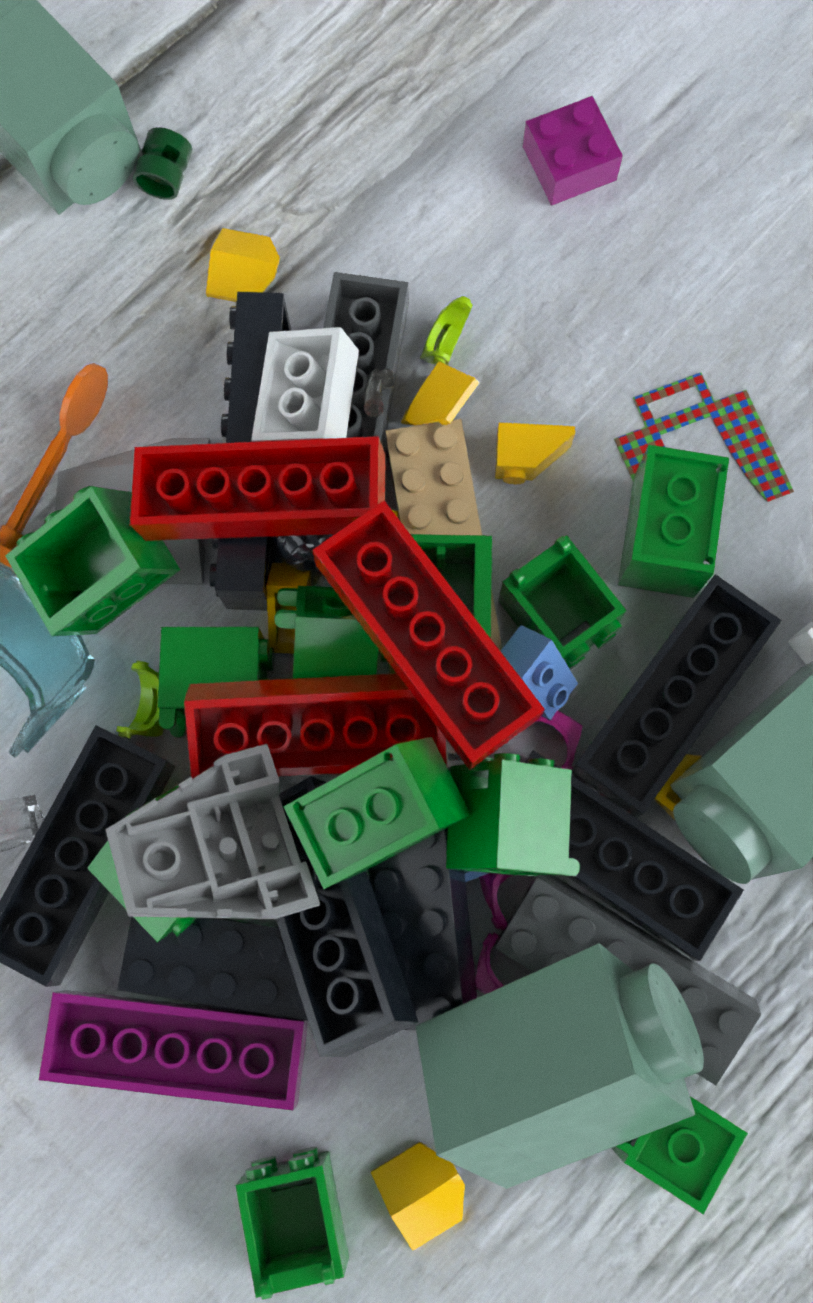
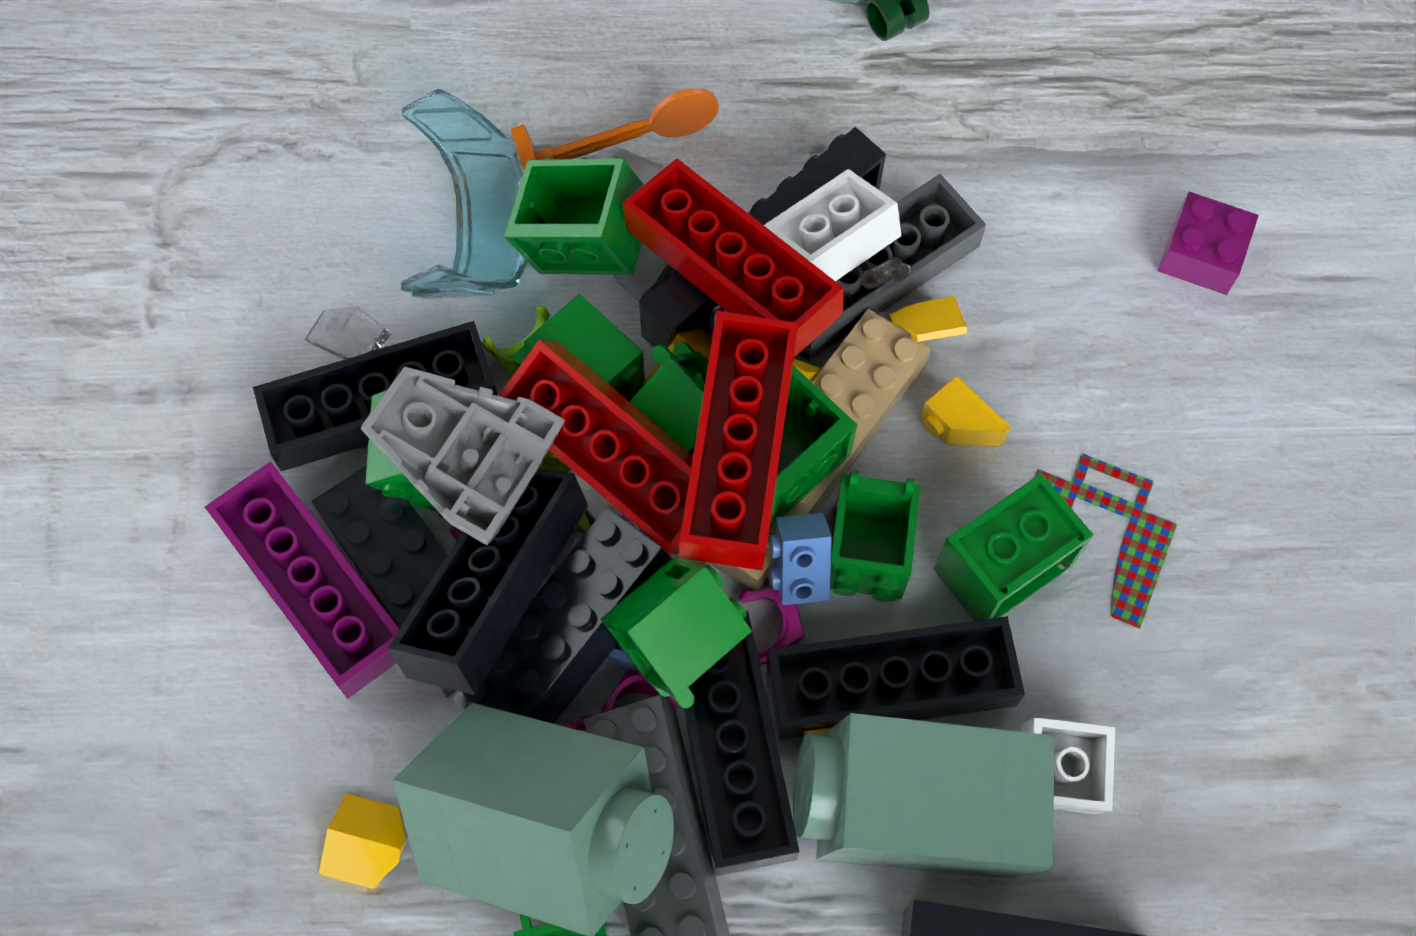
camera: 40 degrees right, 10 degrees down
(240, 264) = (886, 119): yellow slope -> none
(295, 1231) = (255, 771): green container -> none
(376, 810) = (589, 523): green container -> none
(451, 319) = (999, 283): lime helmet -> none

